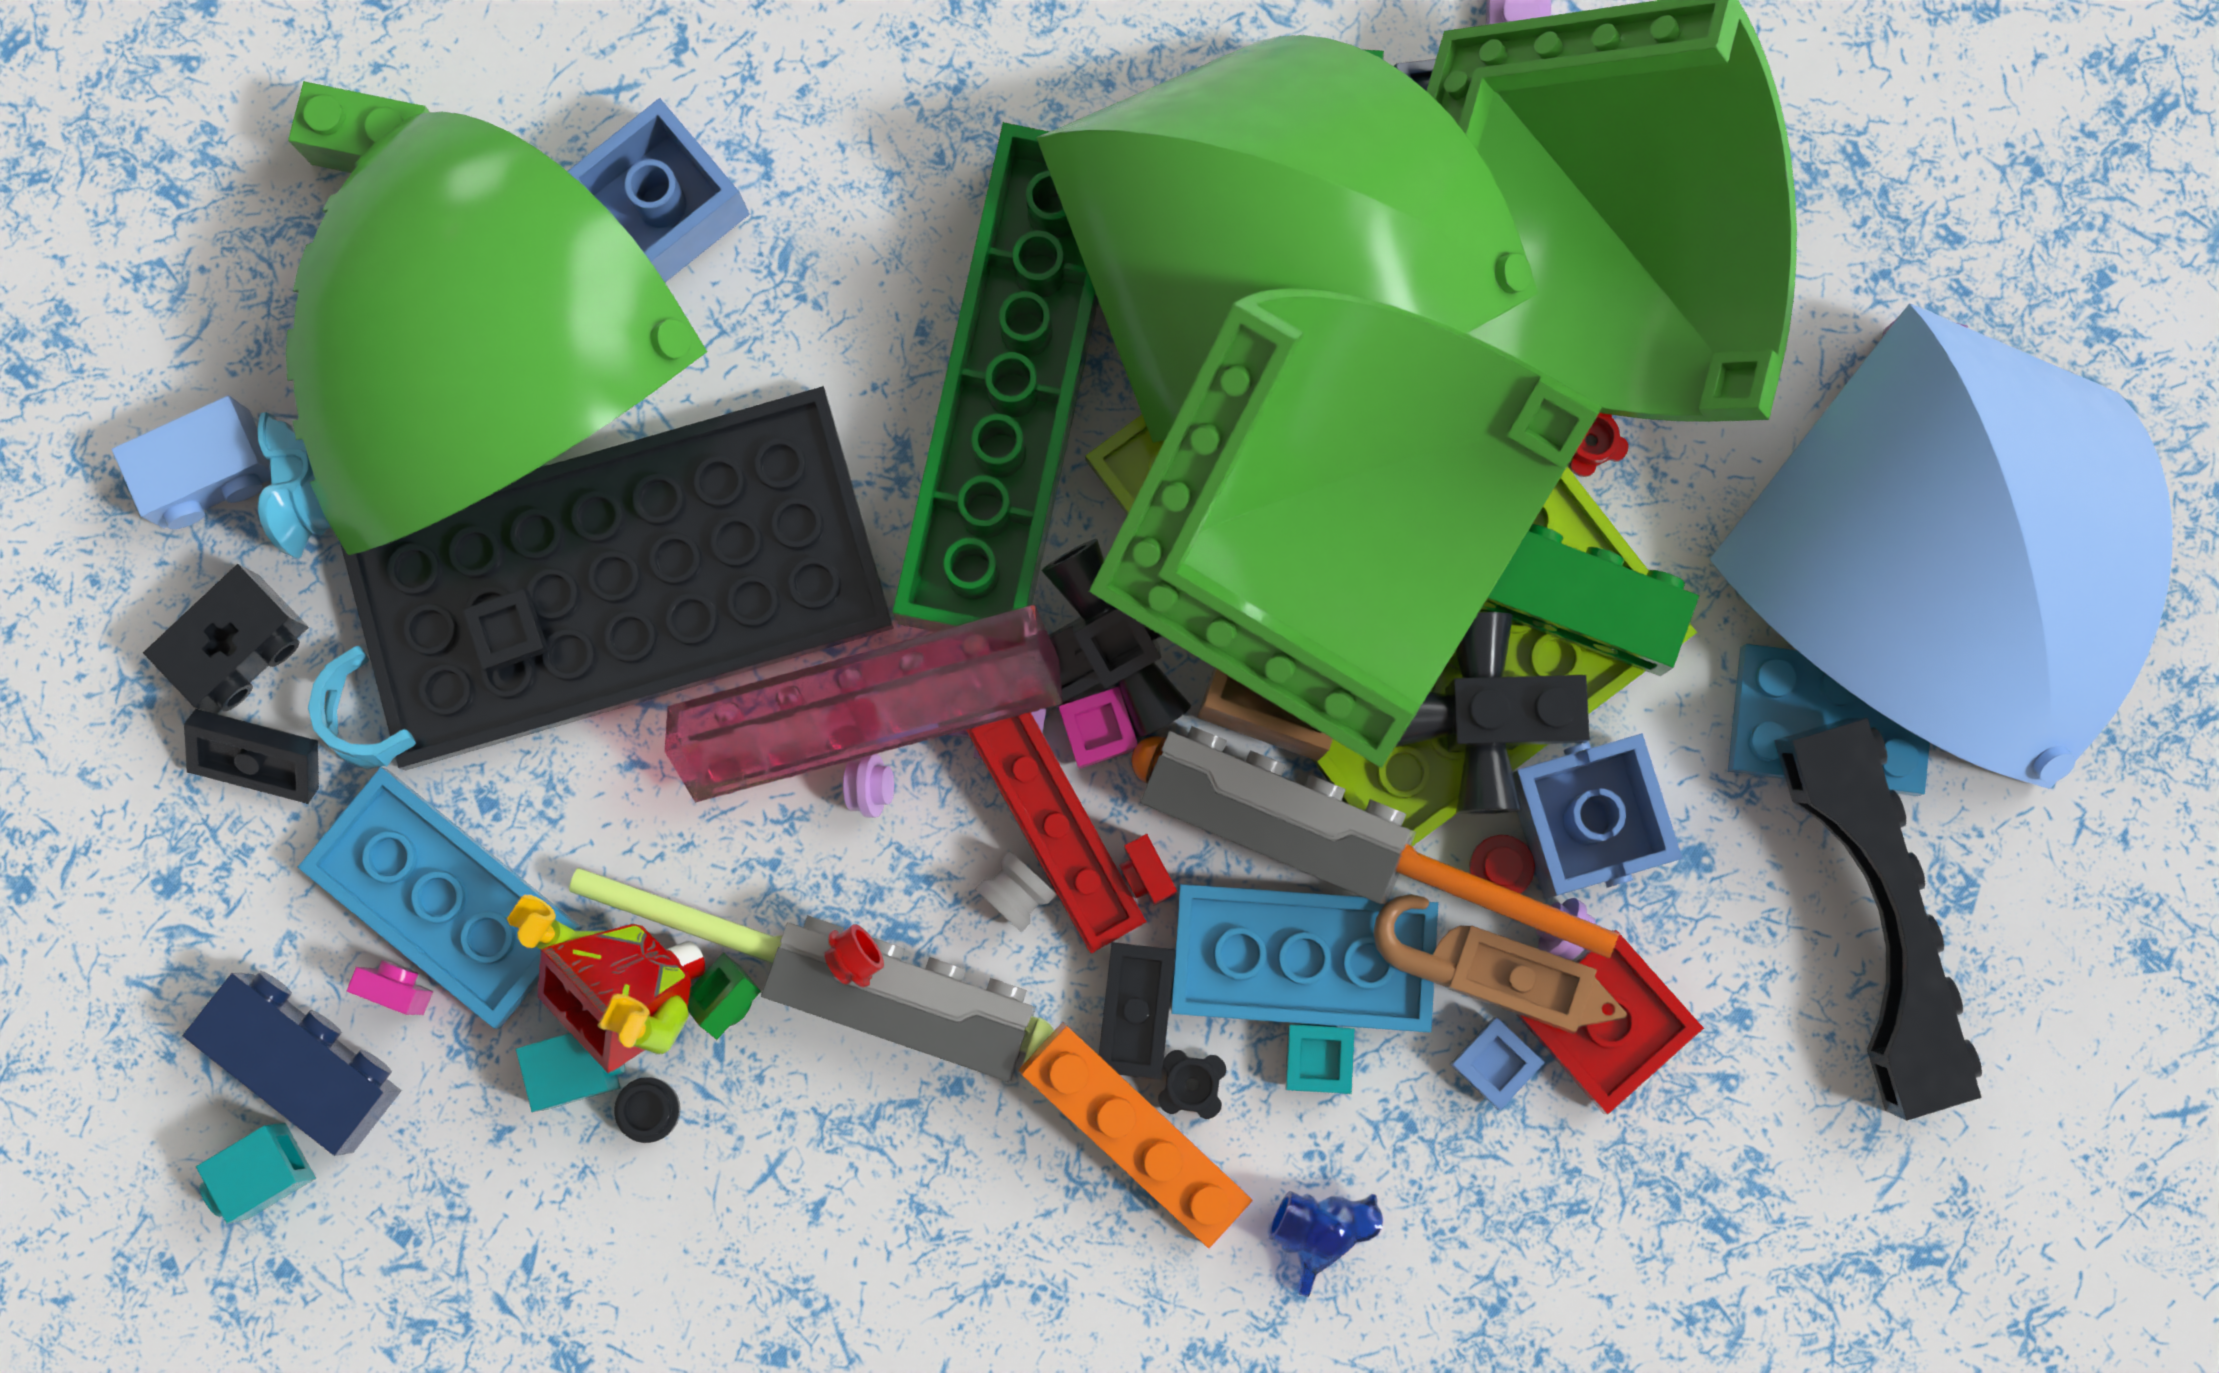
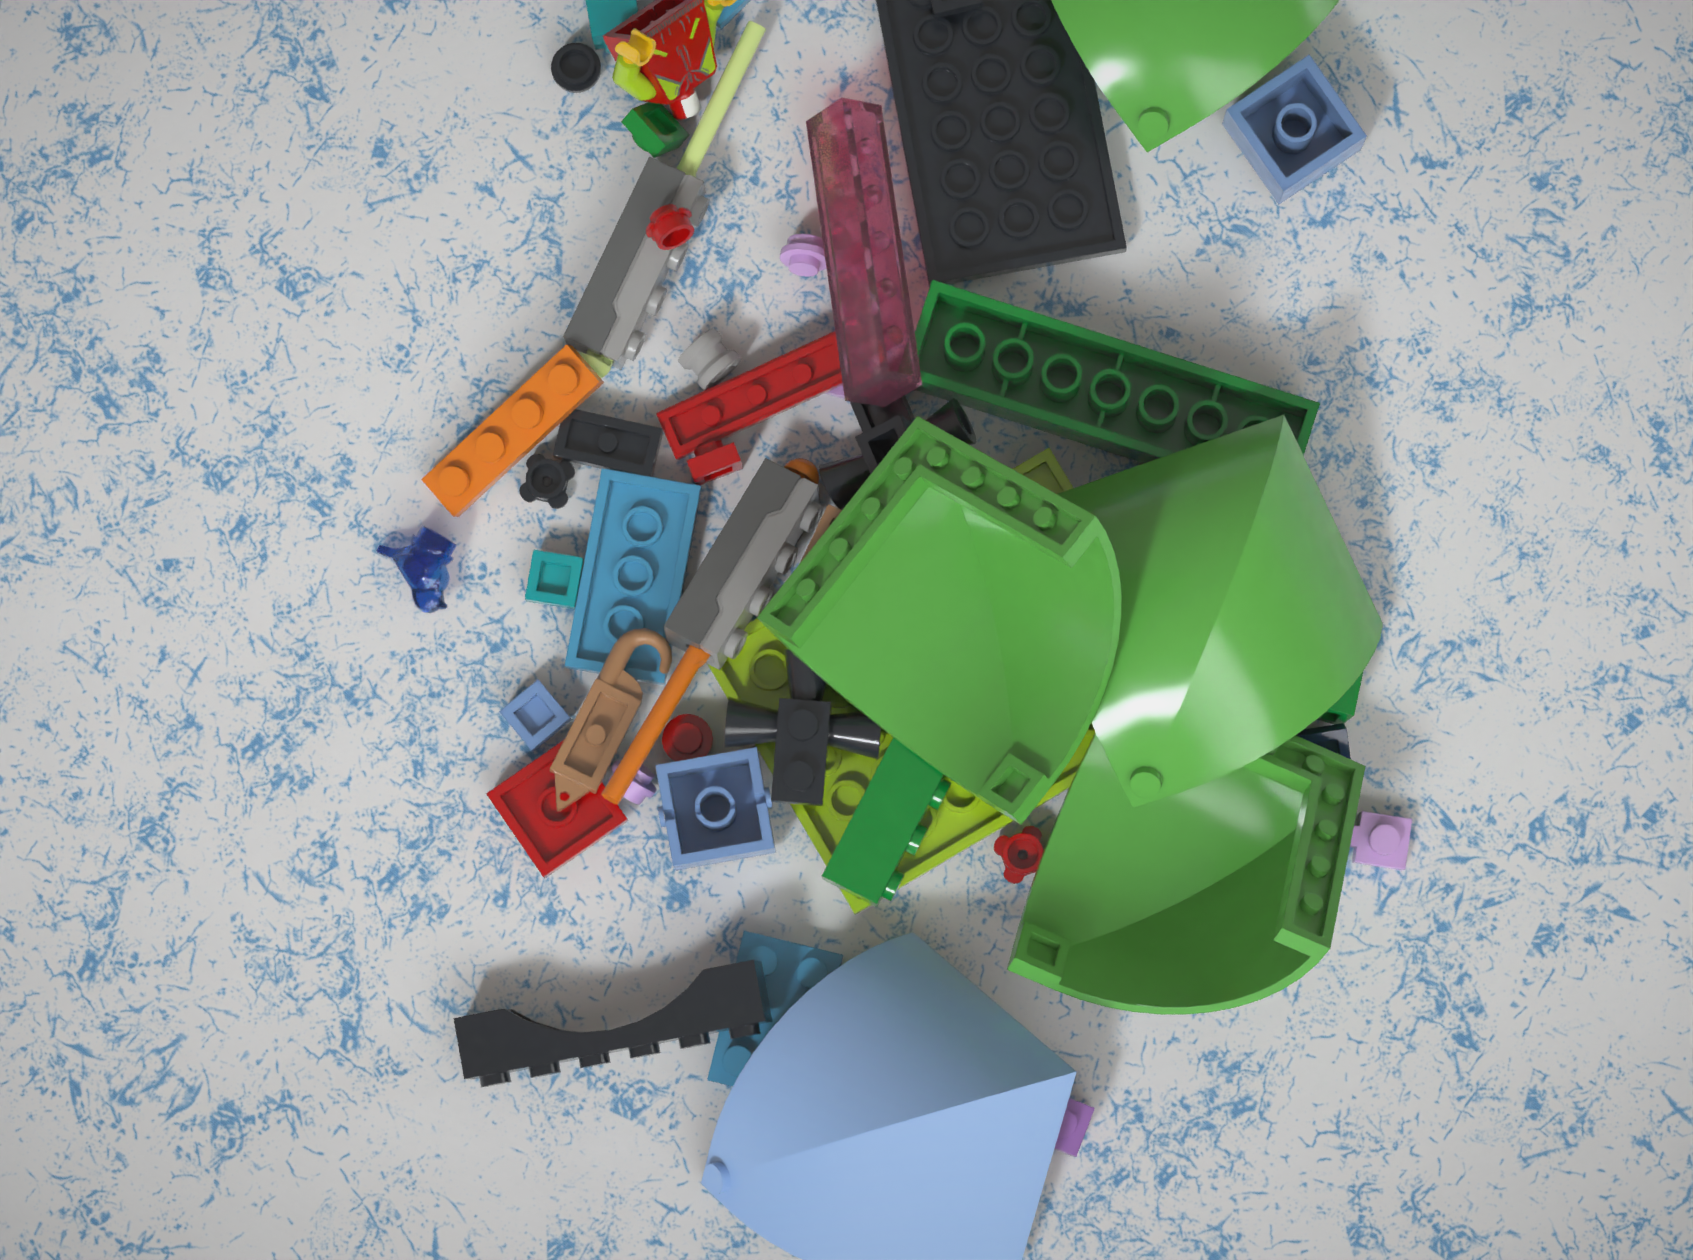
camera: 100 degrees right, 0 degrees up
(1098, 727) = (830, 435): dark pink plate -> none

